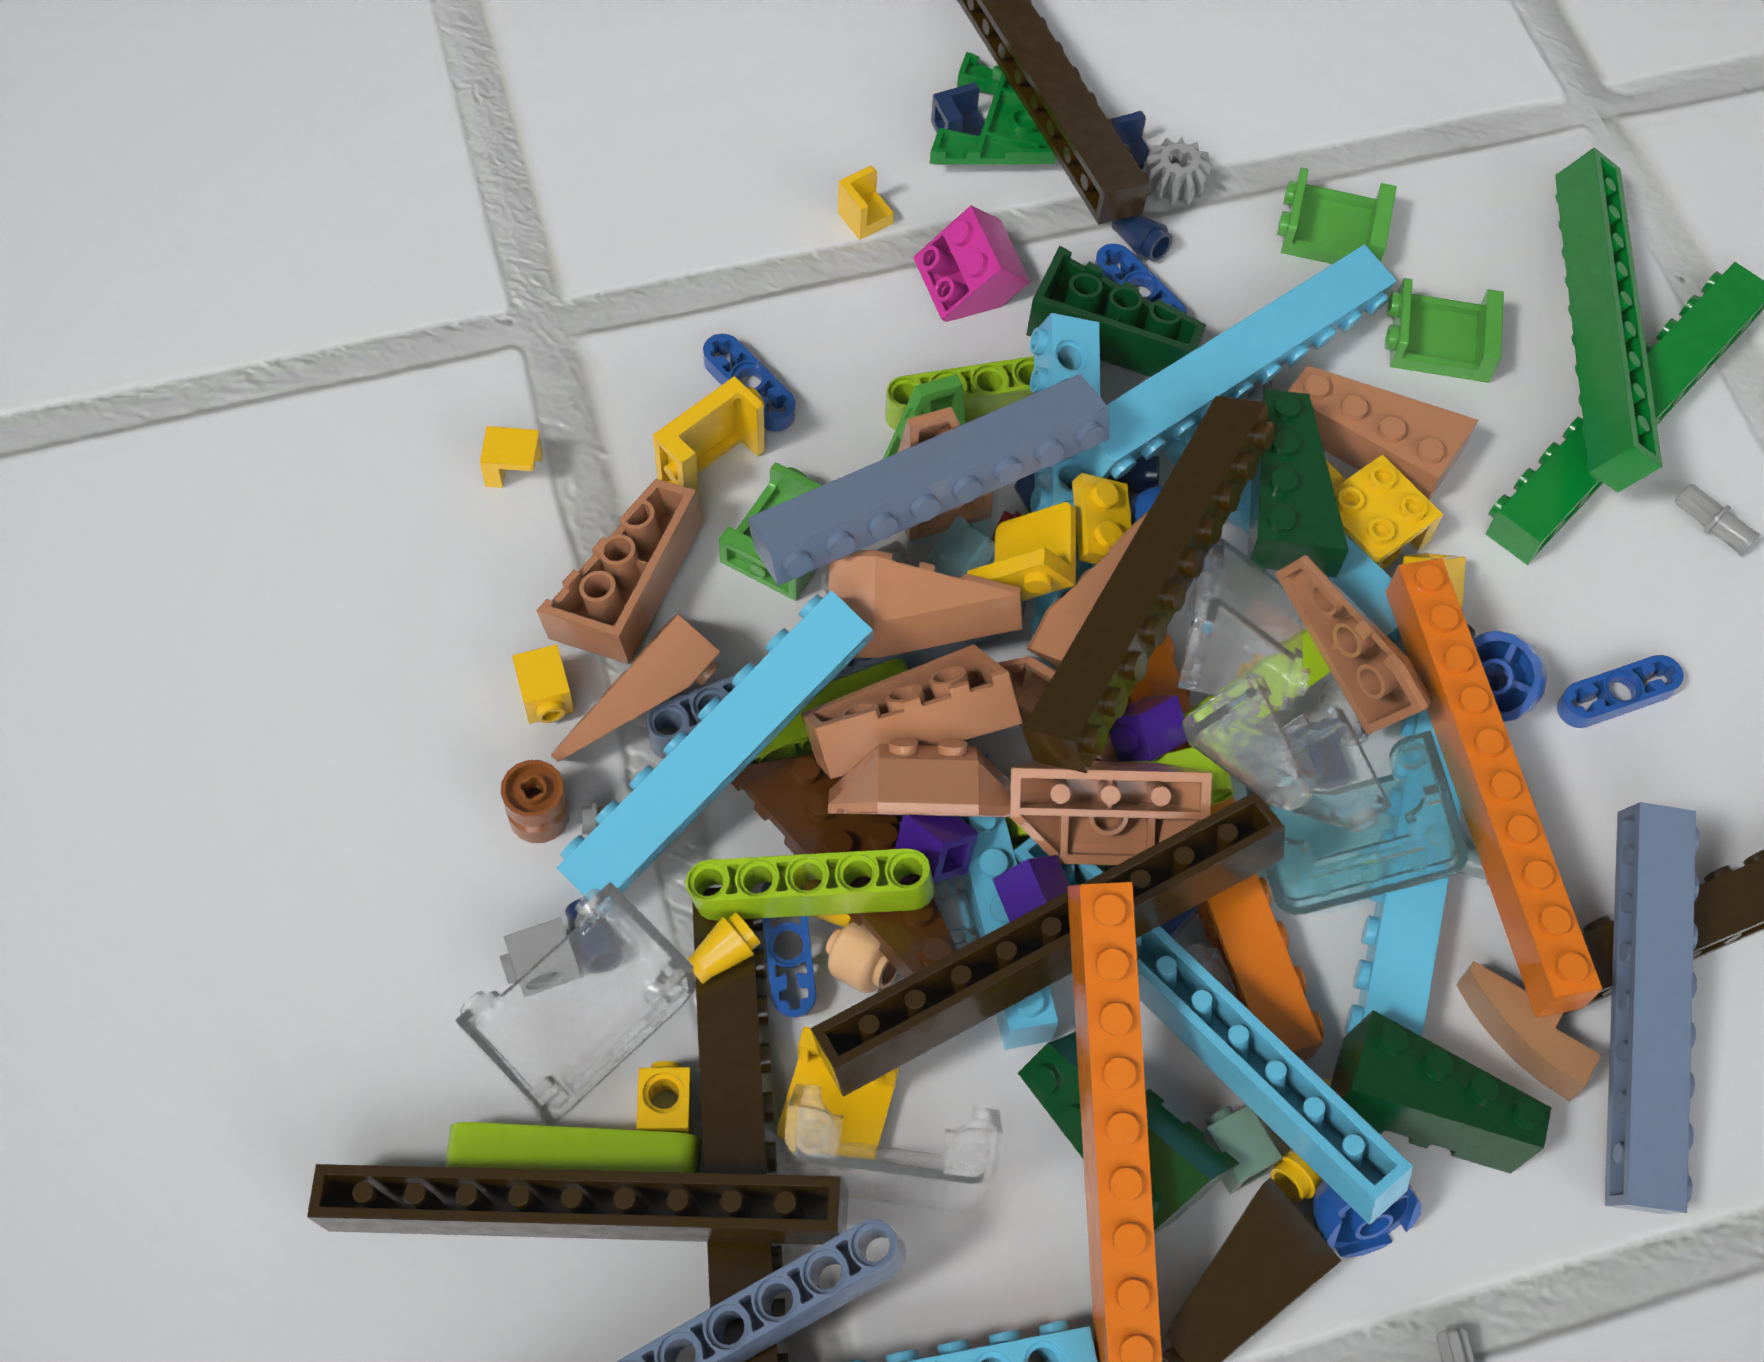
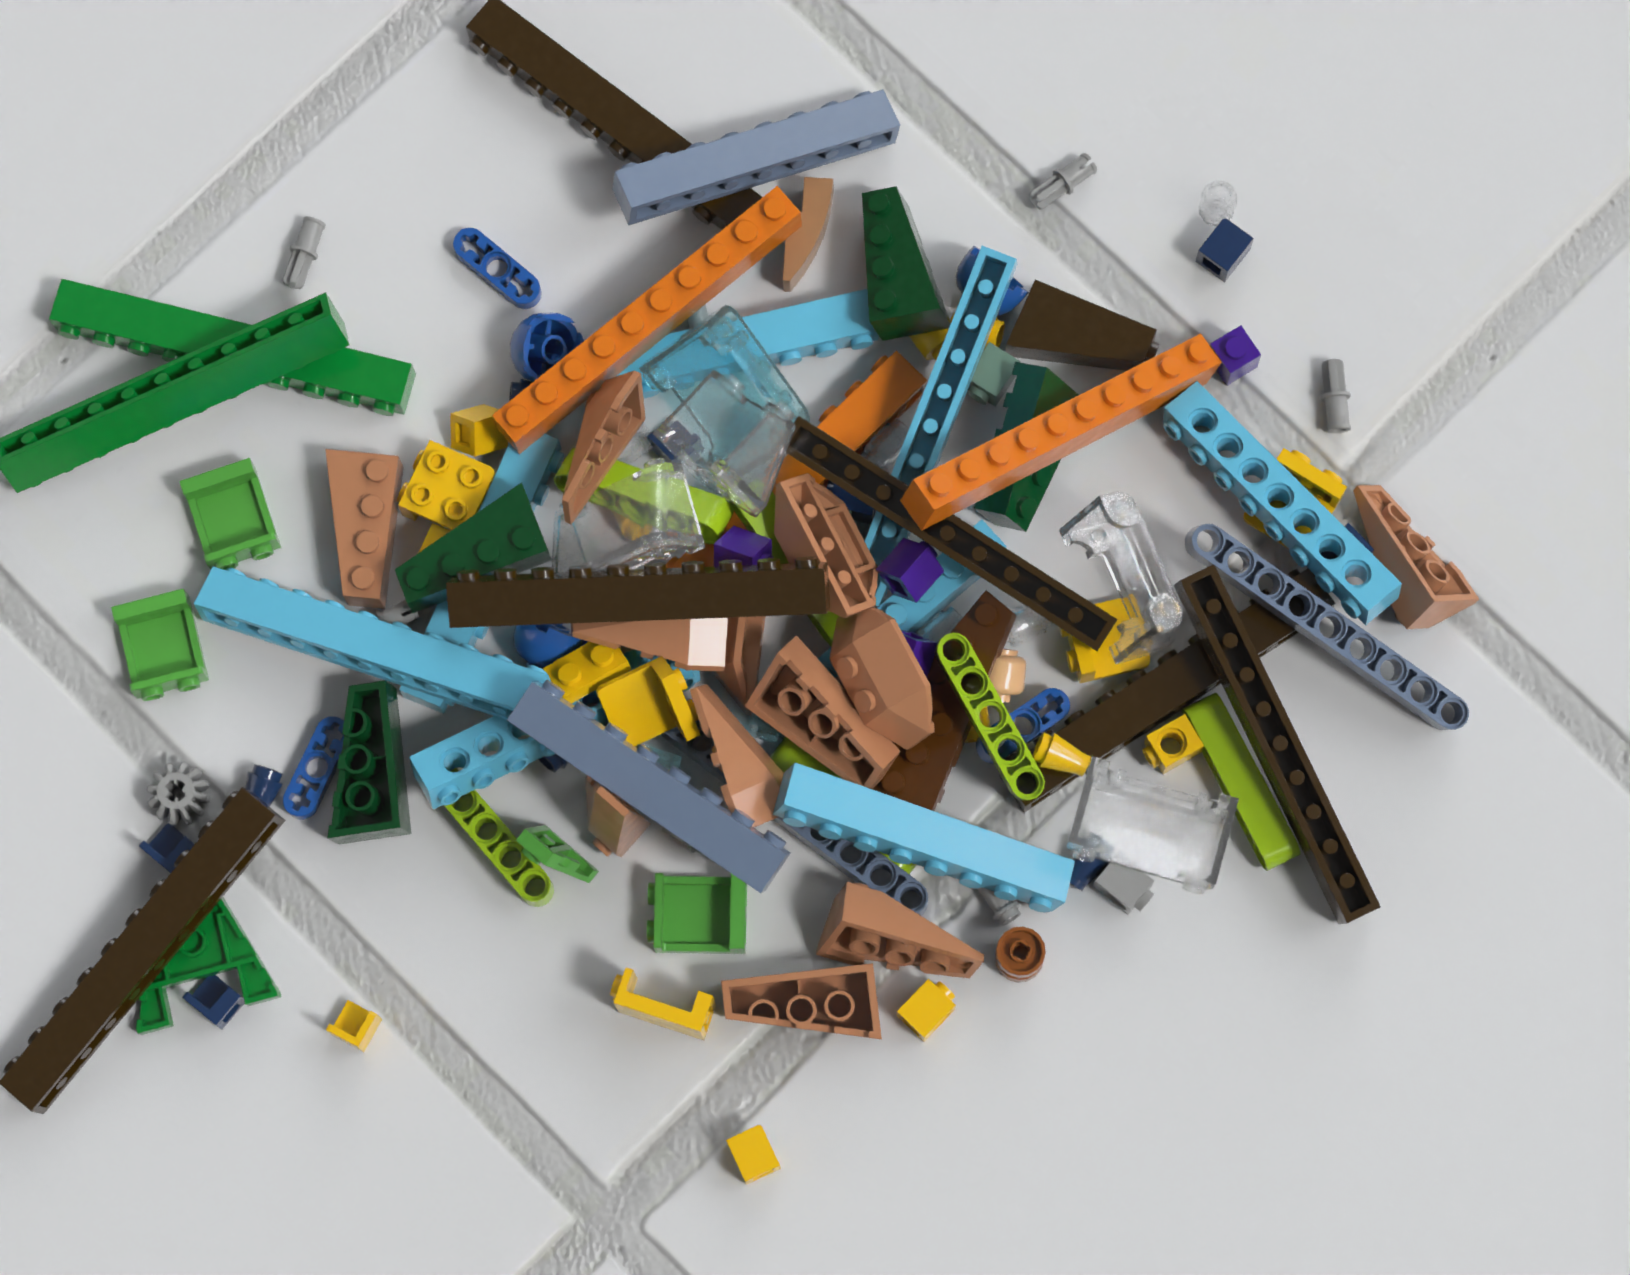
camera: 110 degrees left, 15 degrees up
(746, 364) = (595, 999): blue beam -> none
(971, 266) = (372, 907): dark pink slope -> none

